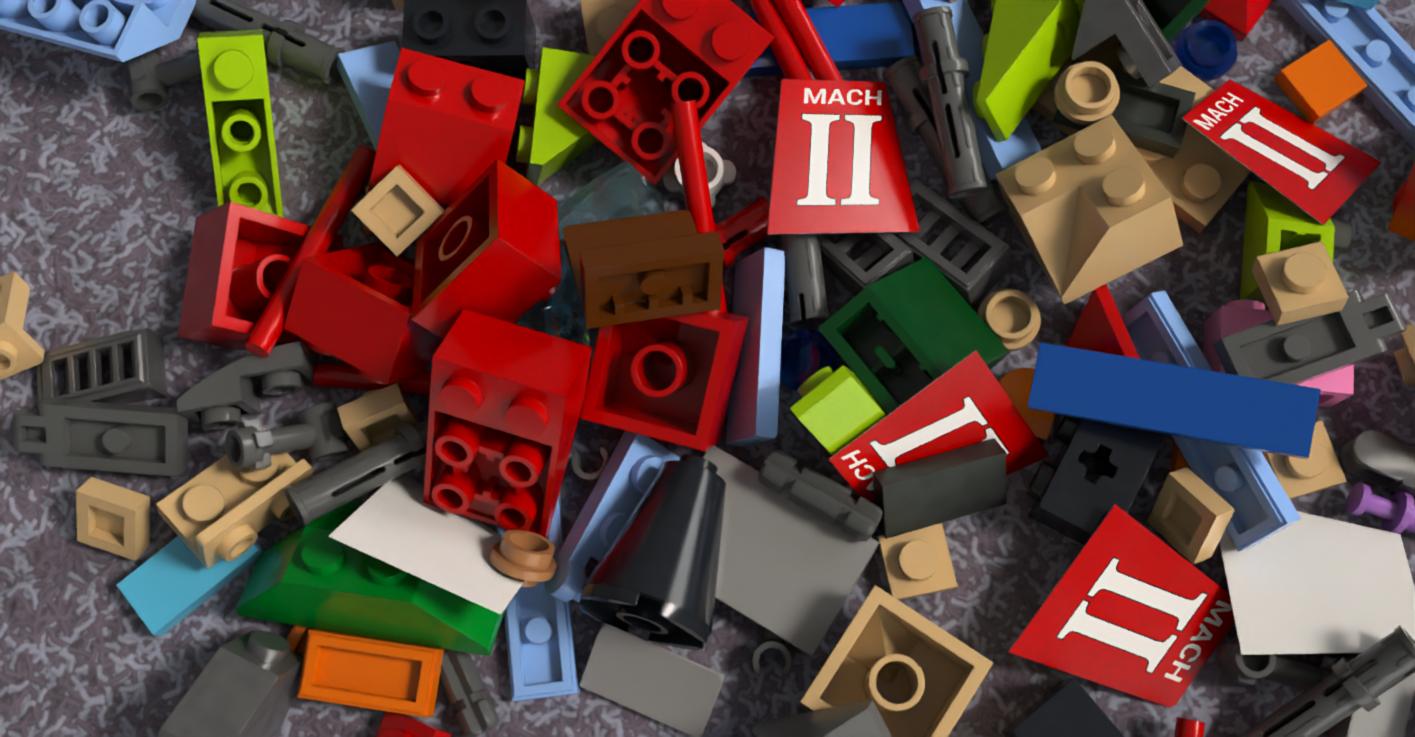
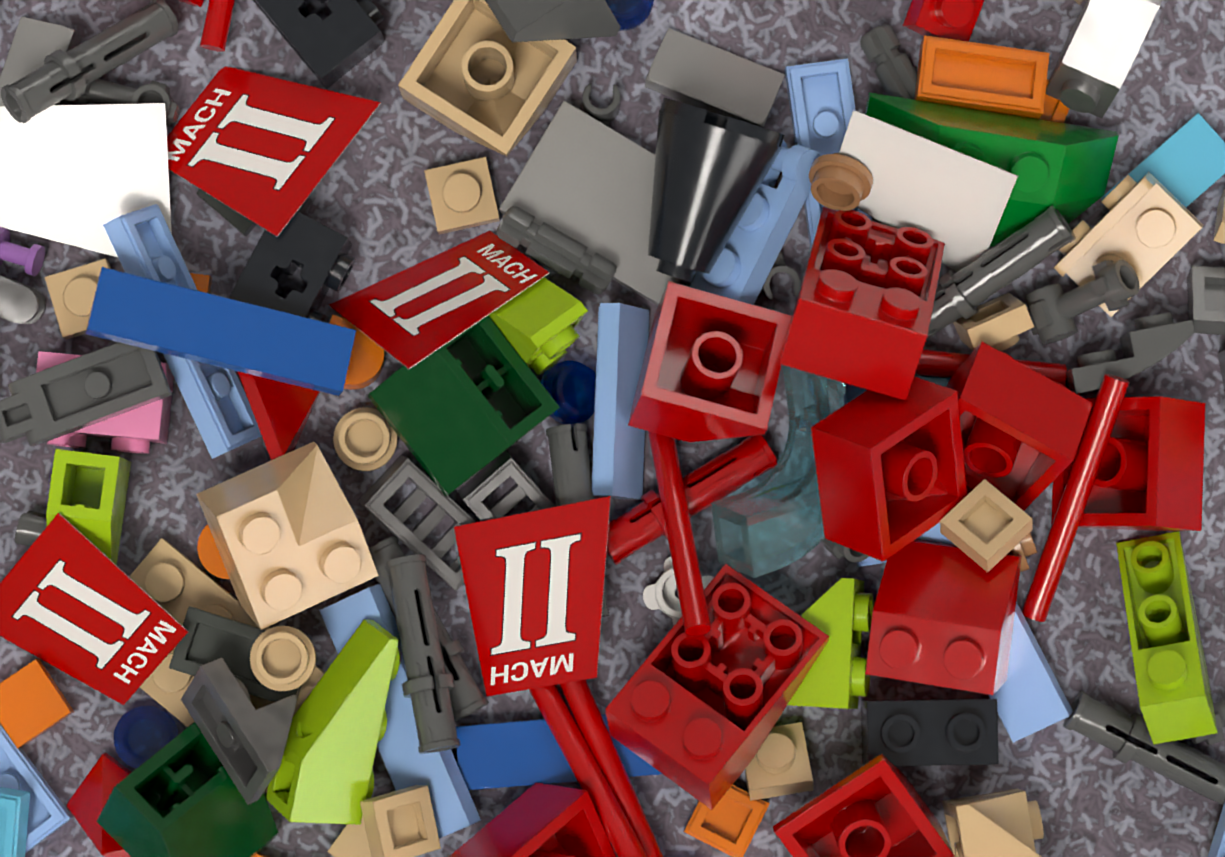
camera: 170 degrees right, 10 degrees up
(644, 268) = (734, 449): reddish brown bracket -> none
(940, 487) = (439, 260): pearl dark grey tile -> none
(1190, 515) = (200, 236): tan plate -> none
(1299, 283) = (91, 445): tan plate -> none

